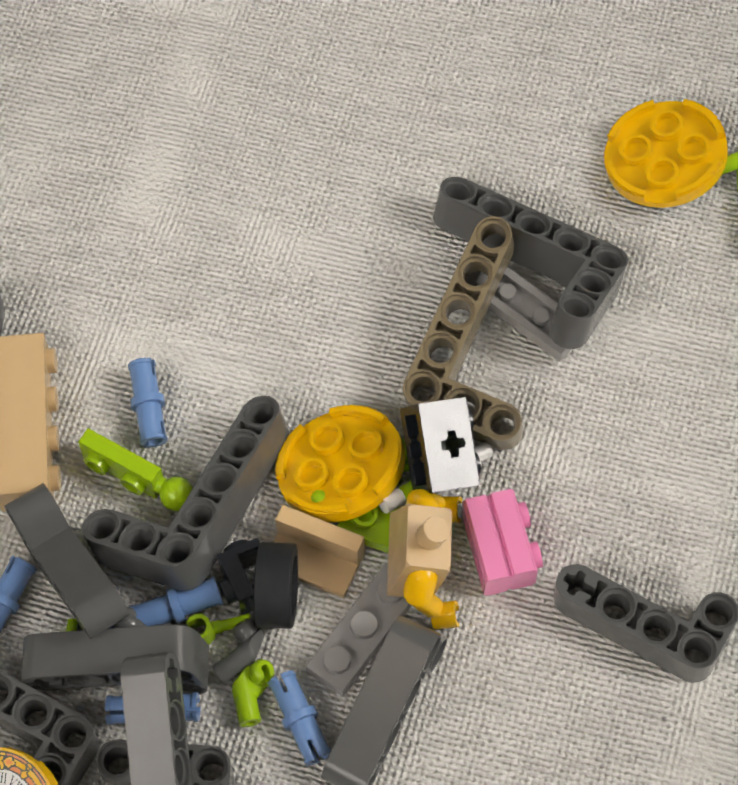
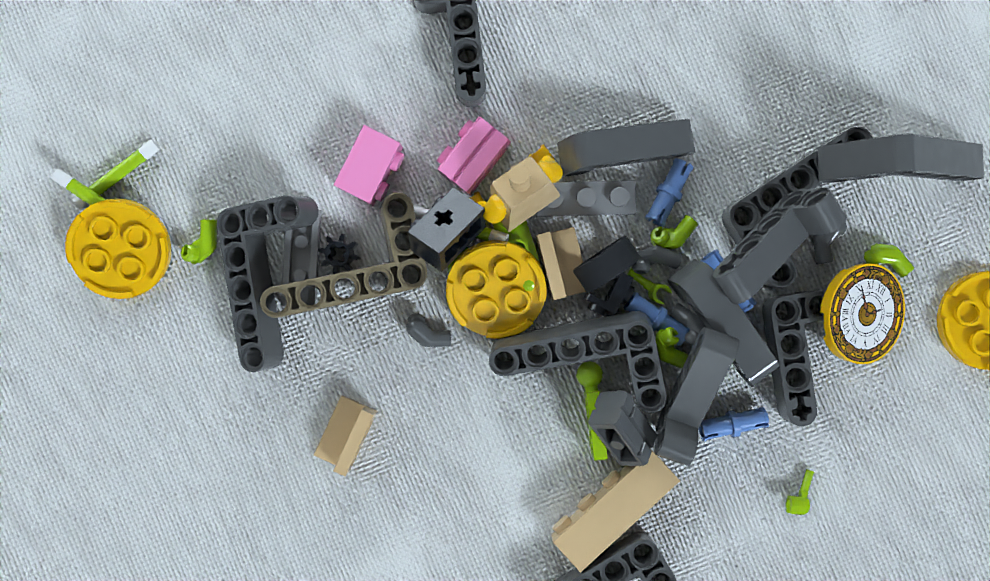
camera: 135 degrees left, 25 degrees up
(96, 475) = (622, 428): none -> dark grey brick
(140, 587) = (665, 346): none -> lime arm
(147, 402) = (542, 442): medium blue pin -> none
(312, 231) = (345, 434): none -> tan panel
(349, 368) = (424, 335): none -> dark grey arm
(499, 331) = (329, 252): none -> black gear
(569, 433) = (369, 166): none -> bright pink brick
(609, 227) = (203, 246): none -> lime arm

